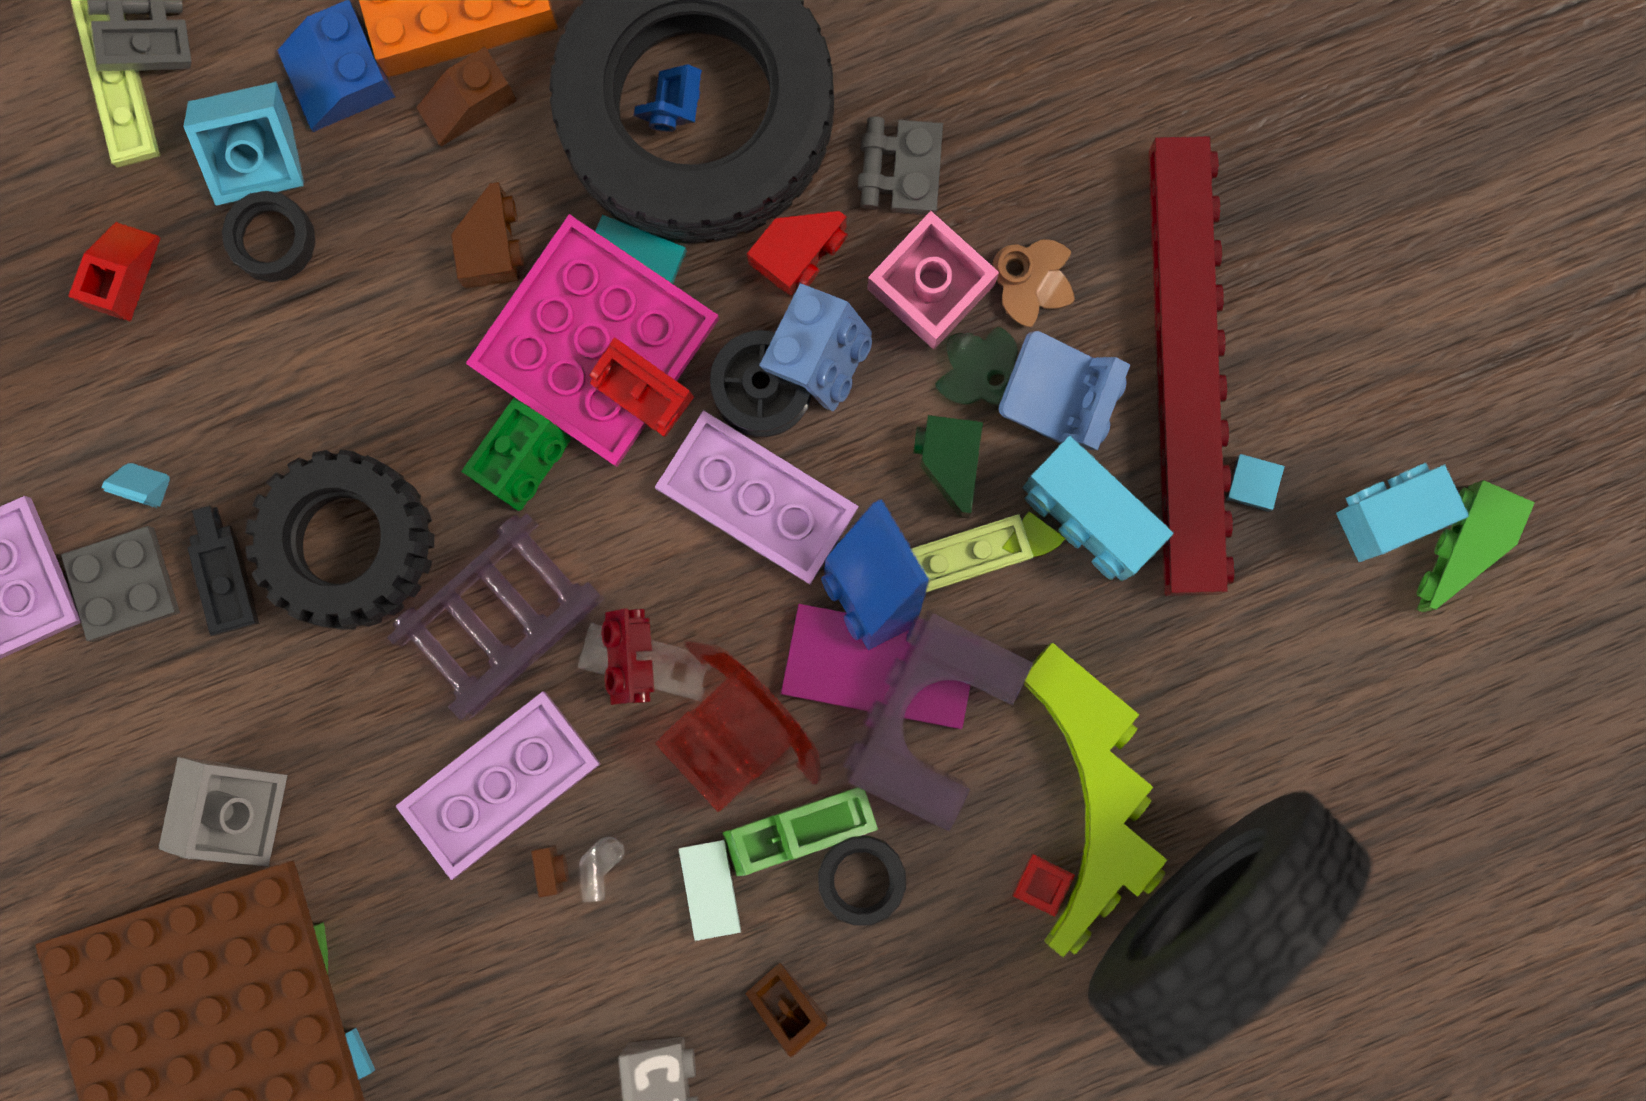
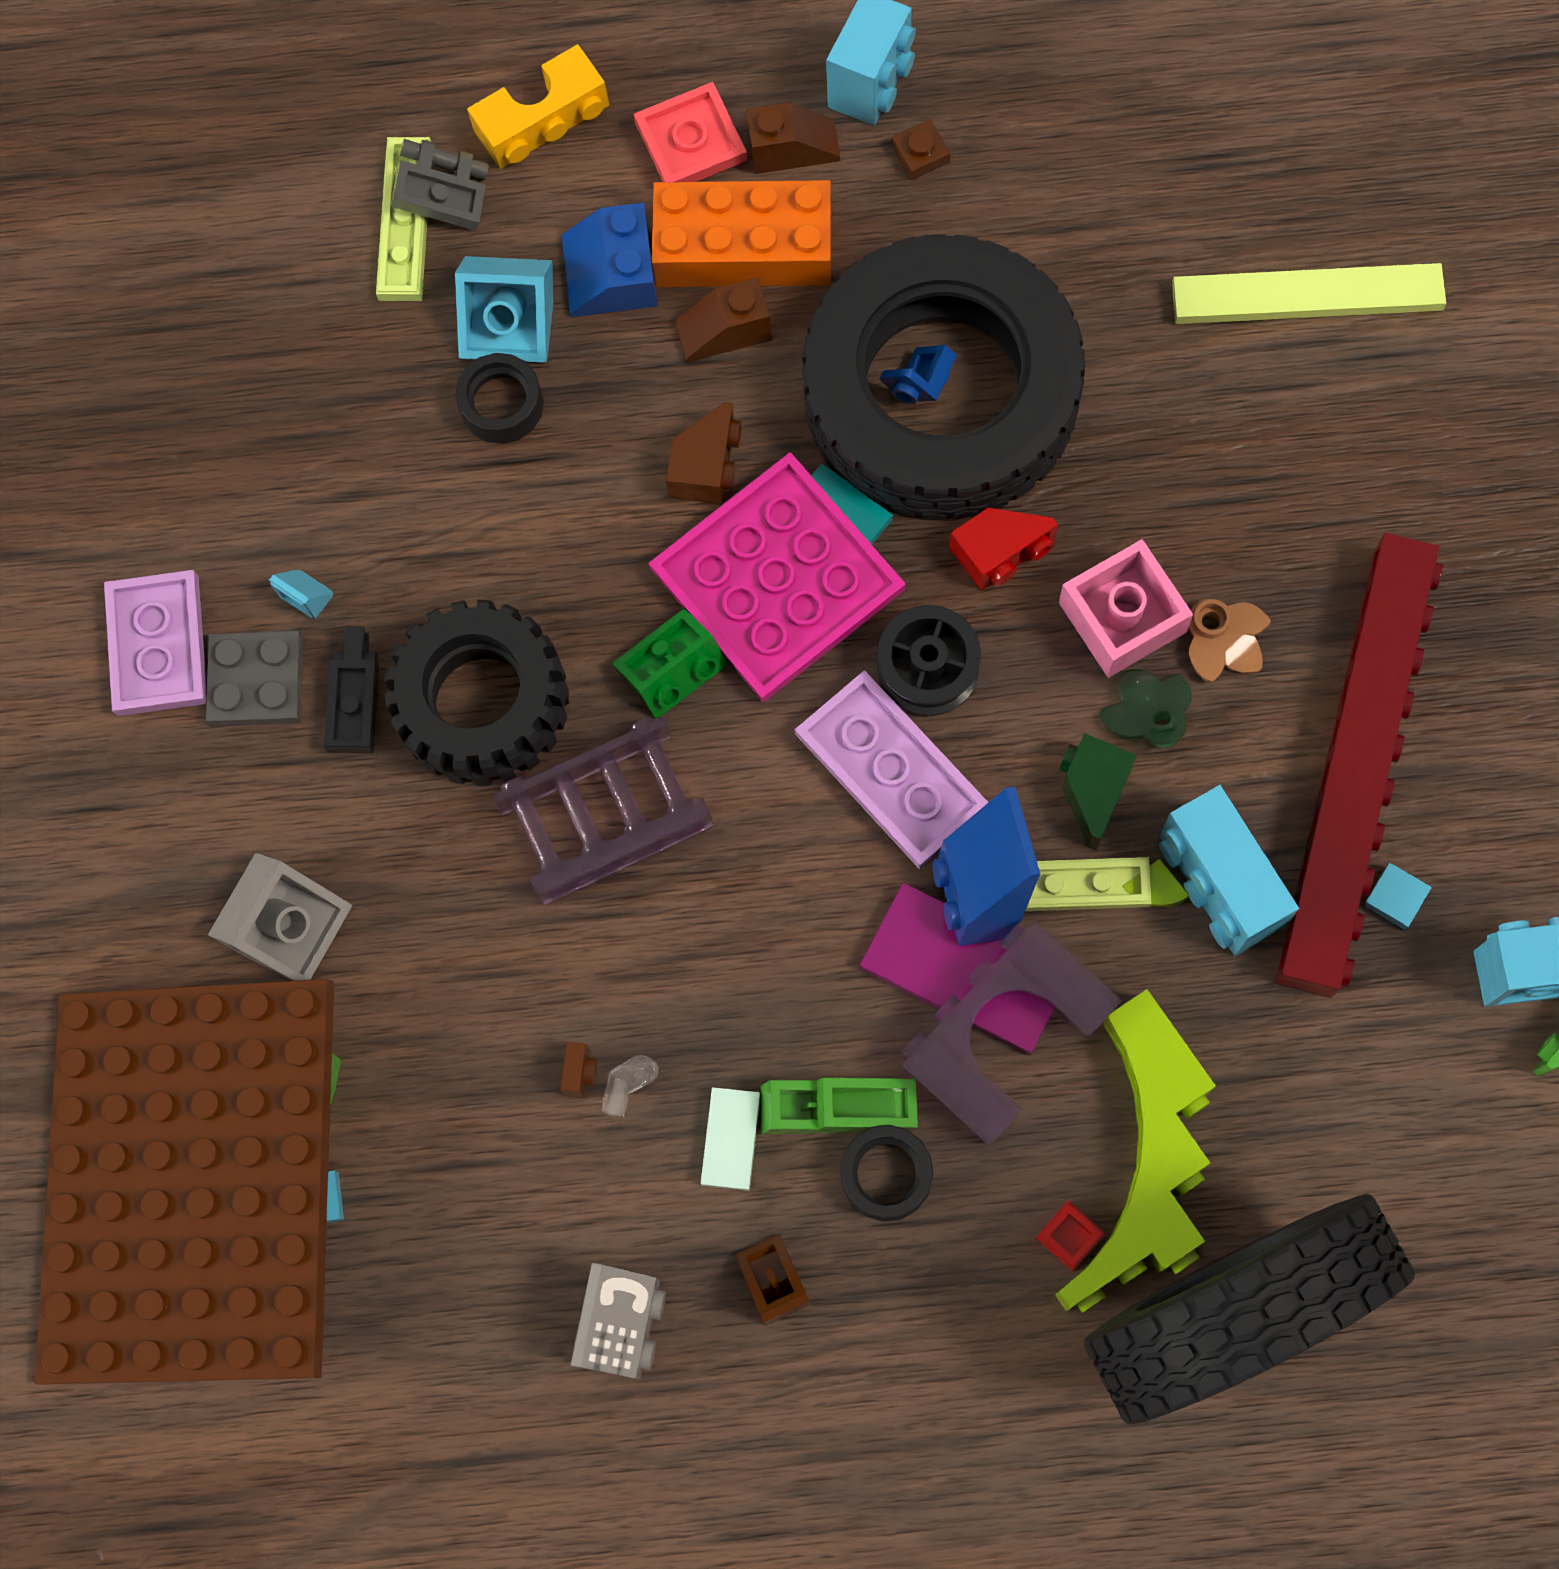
camera: 20 degrees right, 10 degrees down
(115, 271) = (346, 390): red slope -> none
(498, 785) = (553, 973): lavender plate -> none
(624, 635) = (722, 860): dark red hinge -> none
(640, 387) = (810, 628): red hinge -> none
(664, 658) = (733, 896): clear plate -> none
(734, 733) = (801, 987): clear red piece -> none
(819, 345) = (996, 637): medium blue bracket -> none
(916, 166) = (1139, 500): dark grey plate -> none
(1063, 391) = (1225, 746): medium blue bracket -> none

